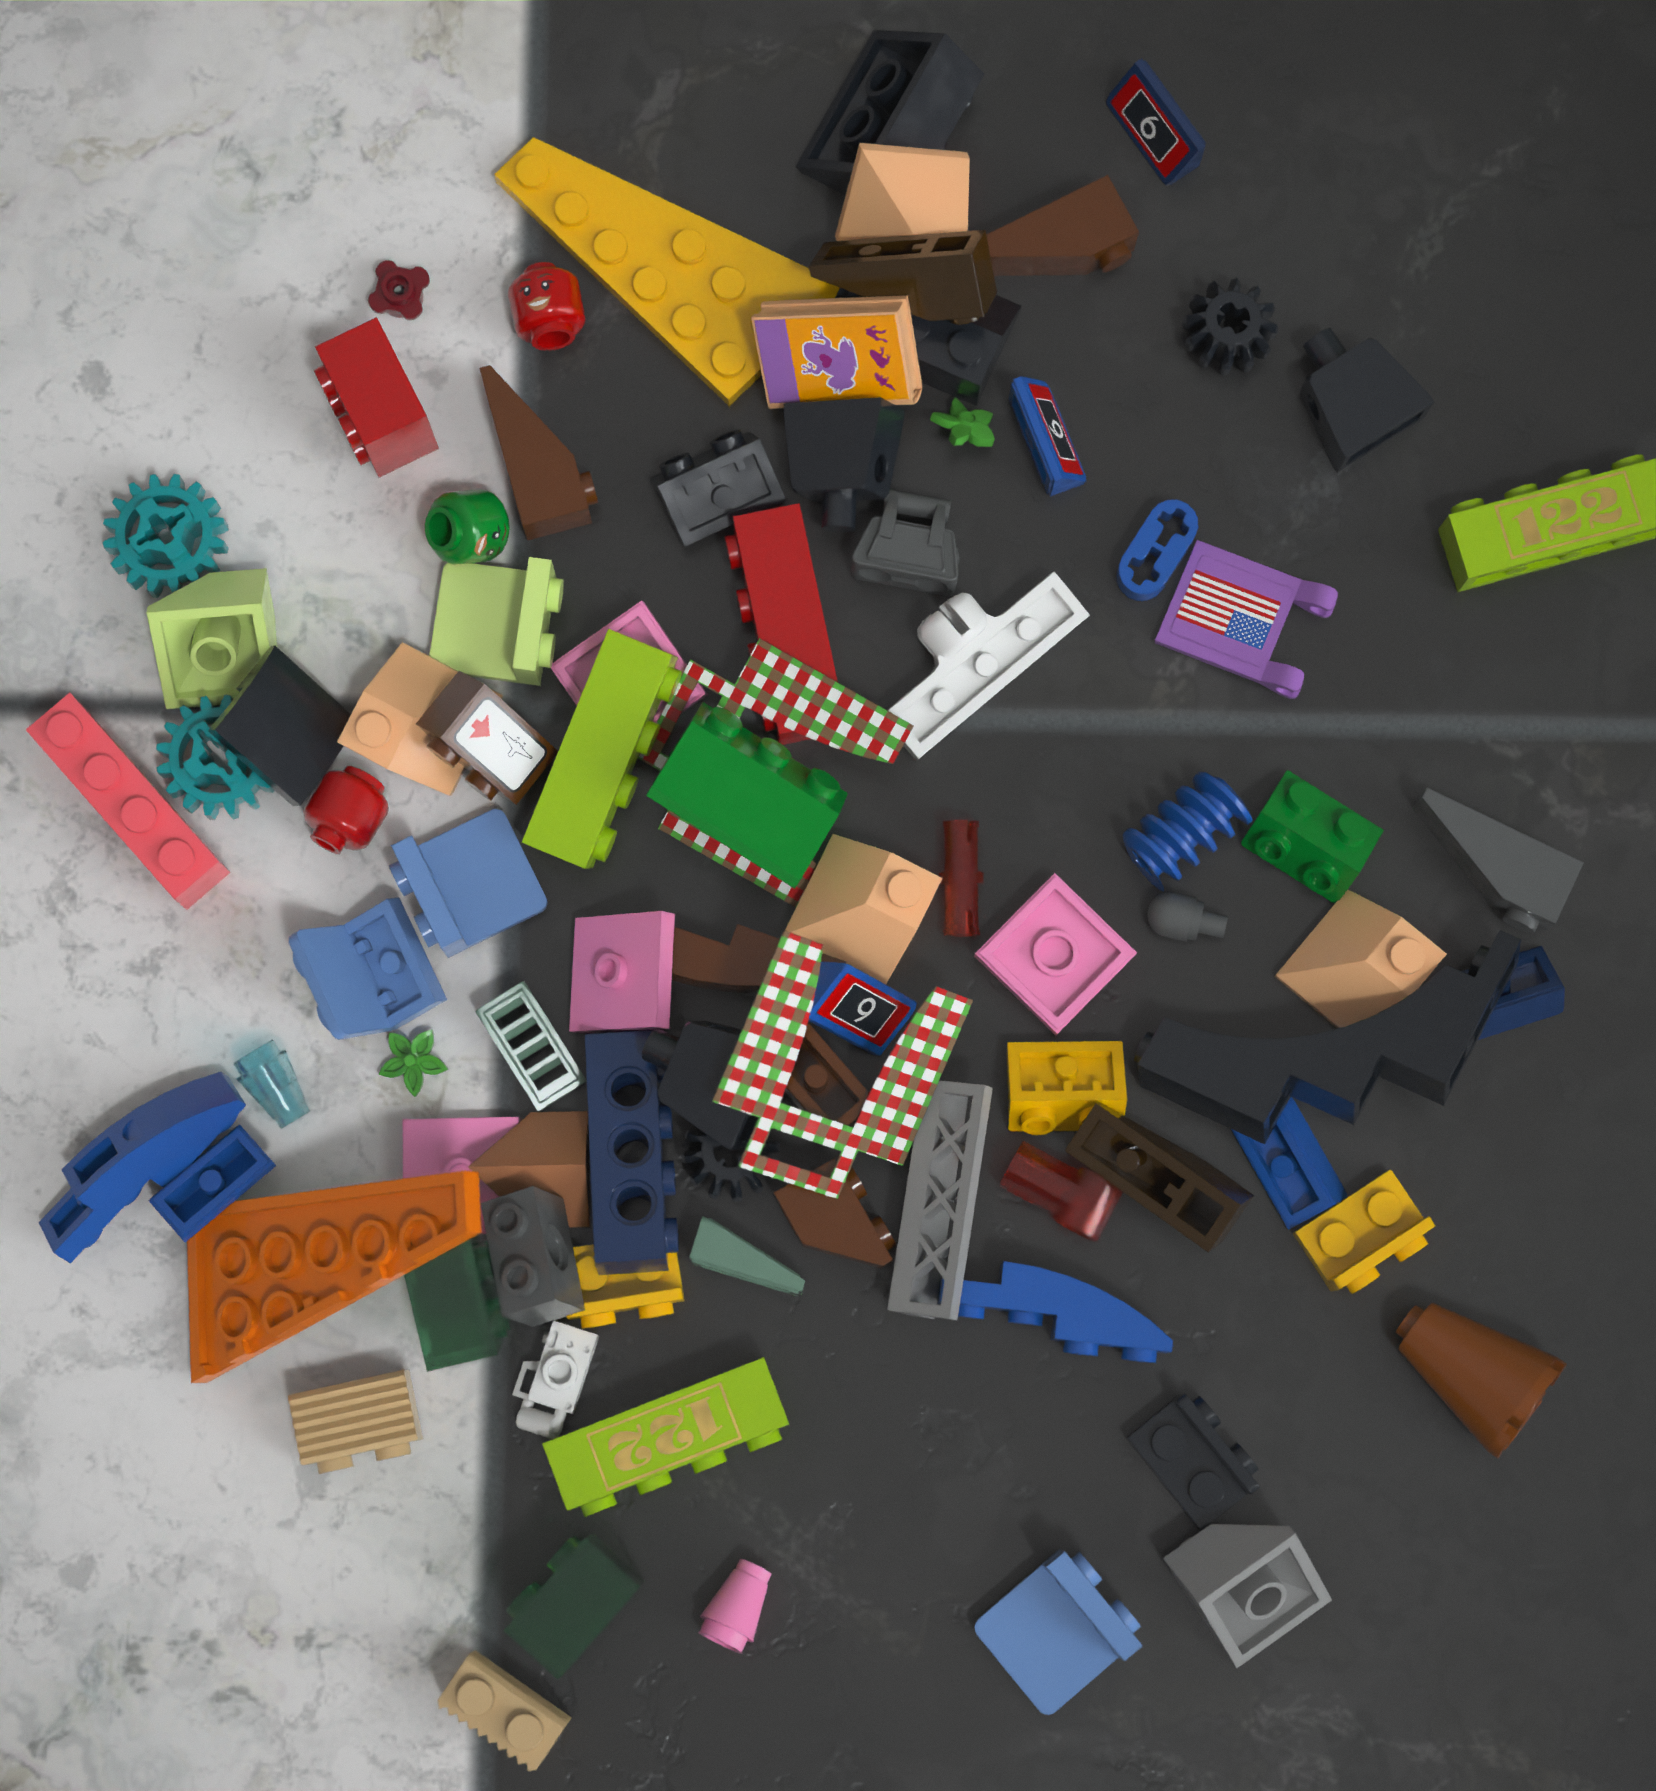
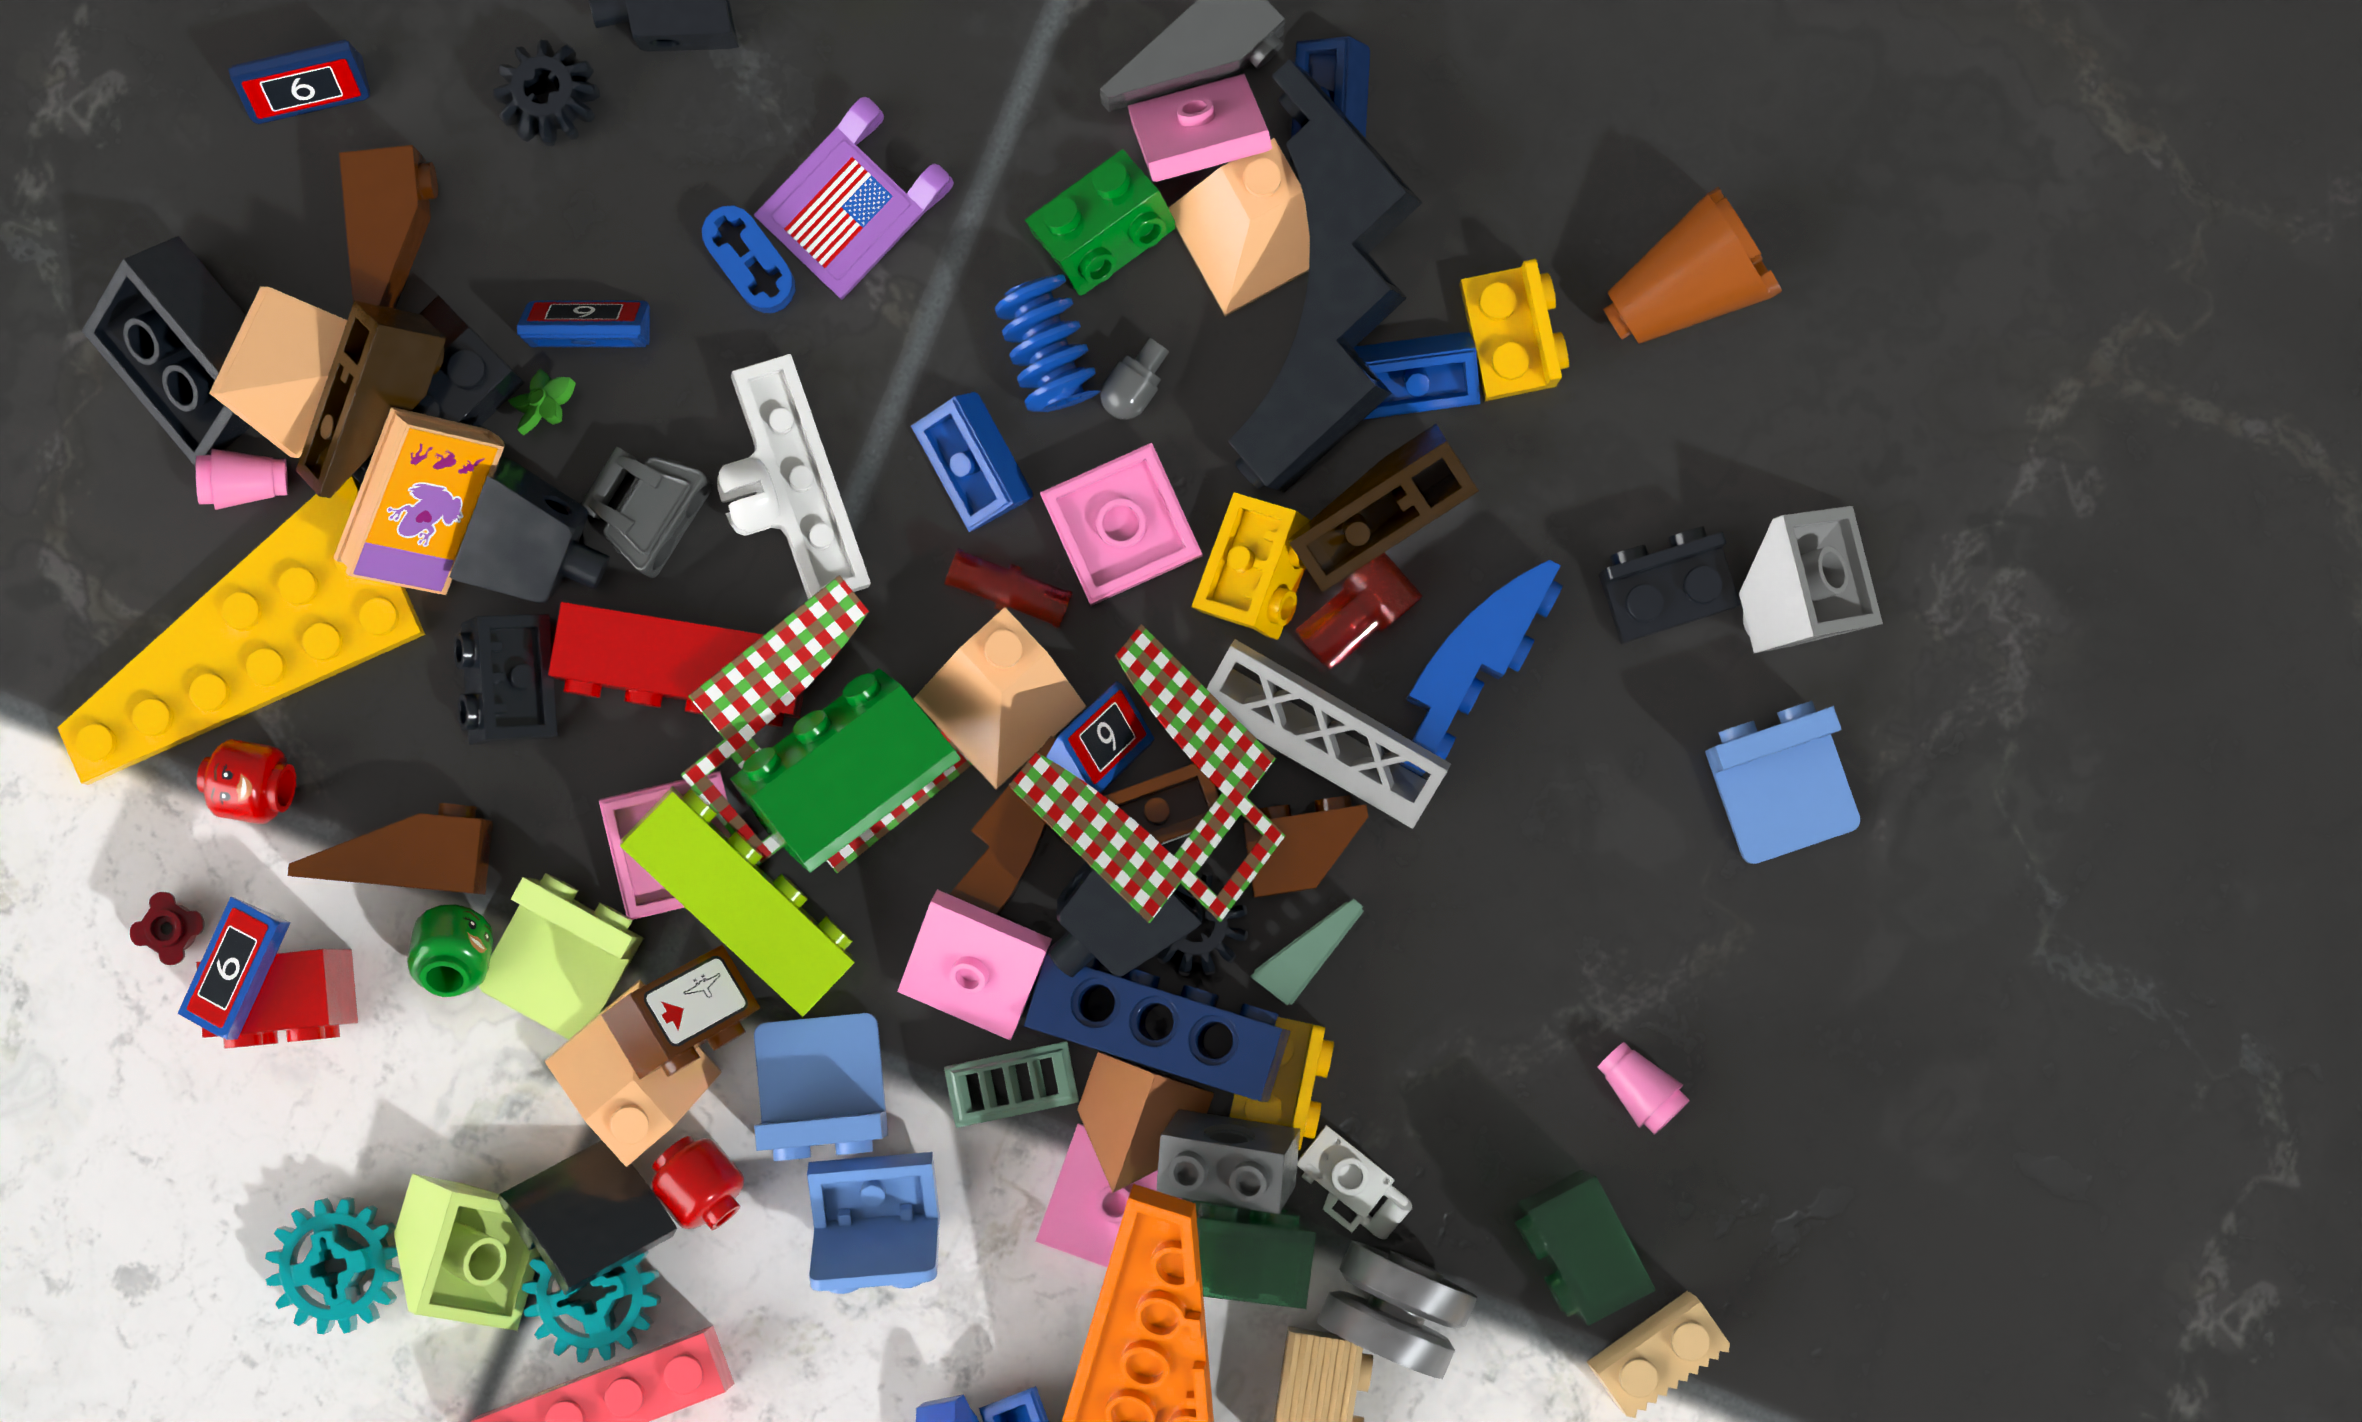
camera: 65 degrees left, 5 degrees up
(272, 1083) = (948, 1359): clear light blue cone -> none
(381, 349) = (233, 969): none -> slope
(412, 1060) = (978, 1209): bright green plant -> none
(450, 1456) = (1399, 1303): none -> flat silver wheel
(667, 1434) = (1452, 1094): lime brick -> none
(800, 202) = (238, 478): none -> bright pink cone
(1060, 806) = (972, 460): none -> blue slope
(1428, 886) = (1199, 128): none -> bright pink plate

